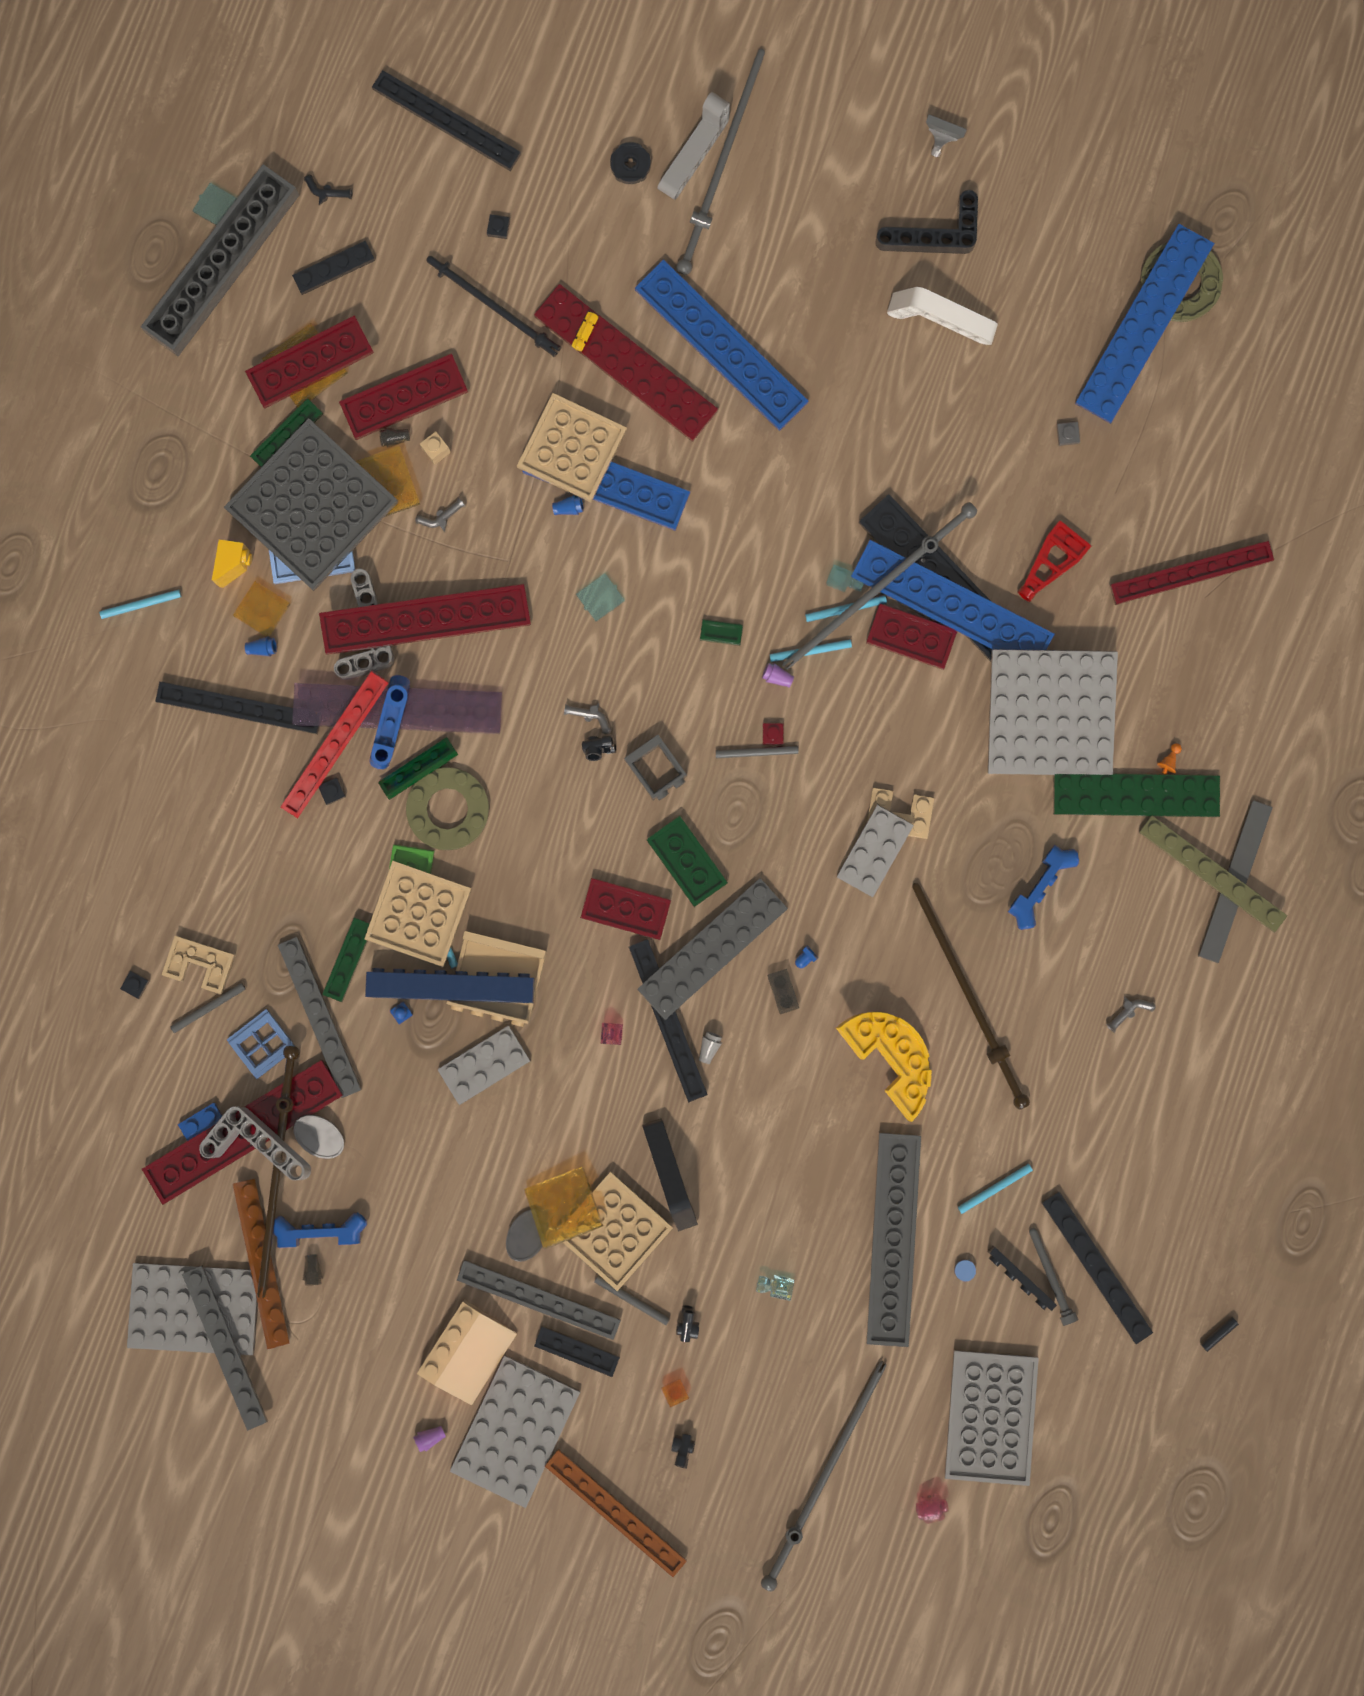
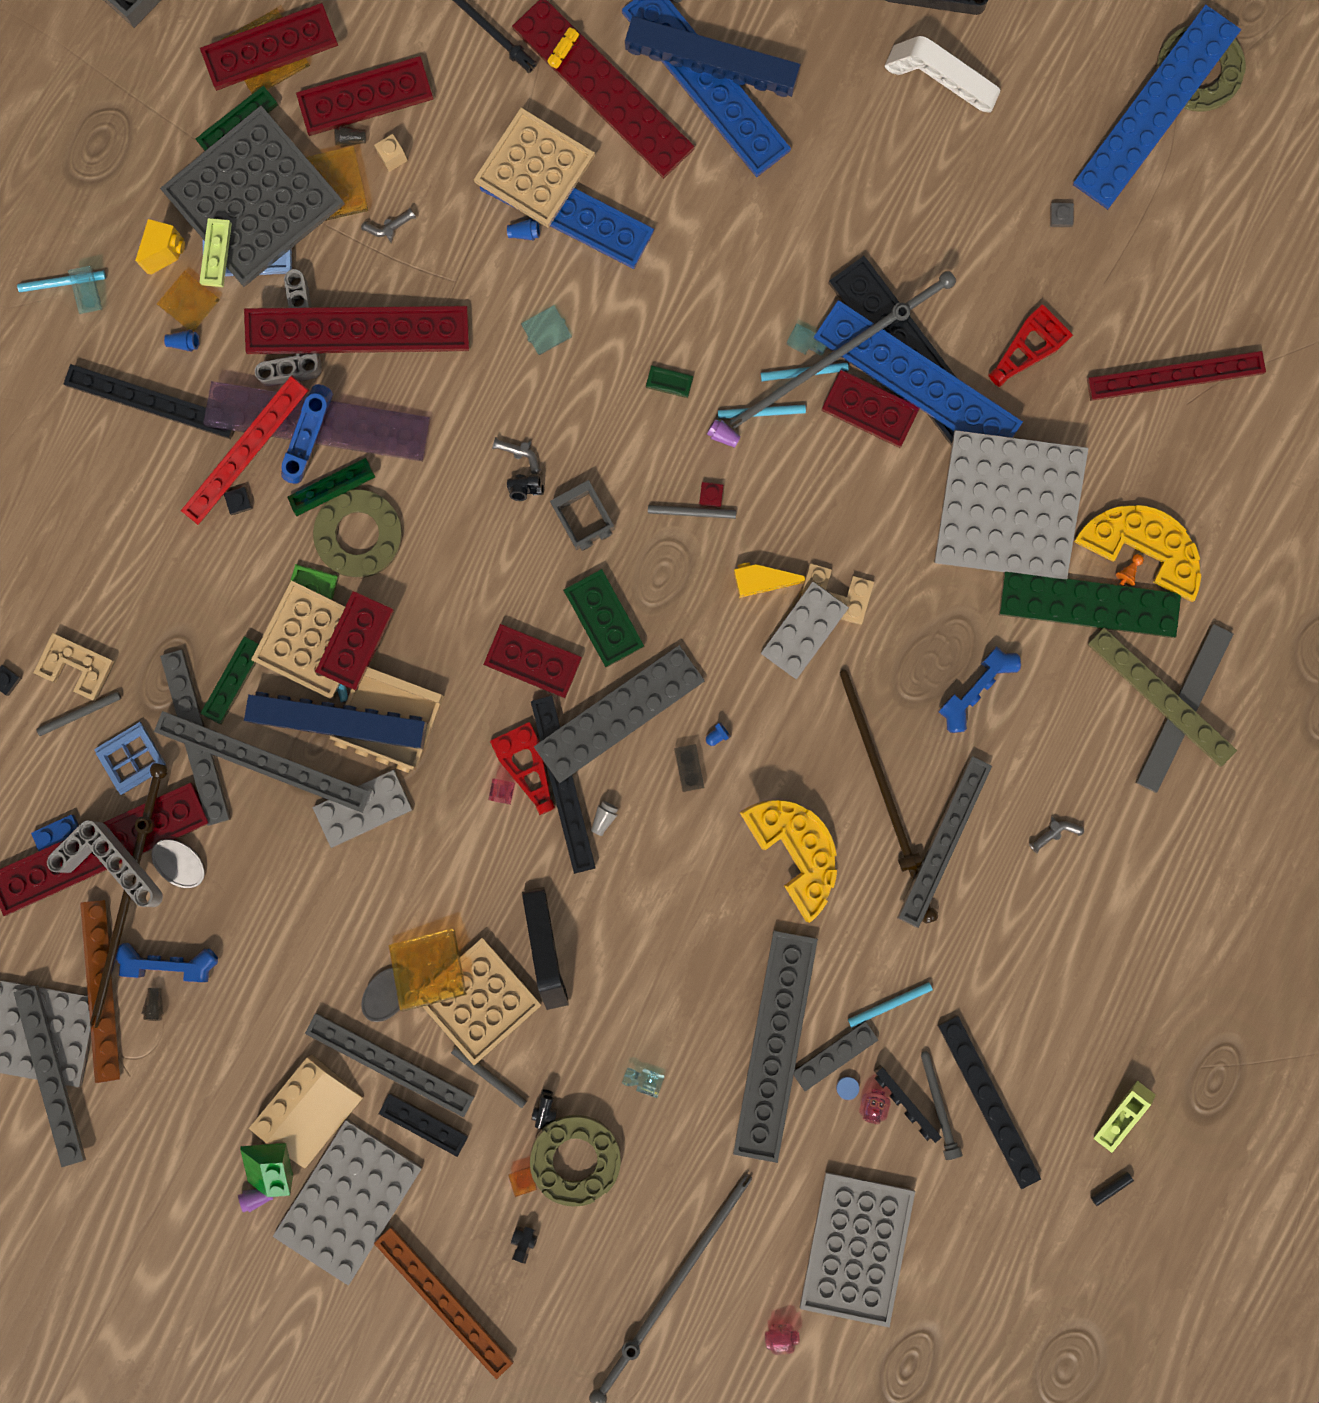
camera: 10 degrees right, 0 degrees up
(164, 610) = (85, 289): none -> clear light blue plate
(284, 562) = (215, 252): none -> yellowish green plate
(386, 1032) = (262, 761): none -> dark grey plate
(401, 1012) = (282, 743): blue piece -> none
(438, 1409) = (268, 1168): none -> green slope
(459, 910) = (354, 641): none -> dark red plate
(618, 986) = (513, 743): none -> red plate
(725, 324) = (712, 57): none -> dark blue brick
(728, 1396) = (575, 1192): none -> olive plate
(826, 808) = (760, 579): none -> yellow slope
(950, 1242) = (835, 1056): none -> dark grey plate
(992, 1284) = (874, 1106): none -> clear pink head
(1027, 1032) = (944, 842): none -> dark grey plate
(1187, 723) = (1152, 534): none -> yellow plate
(1223, 1266) = (1125, 1116): none -> yellowish green slope

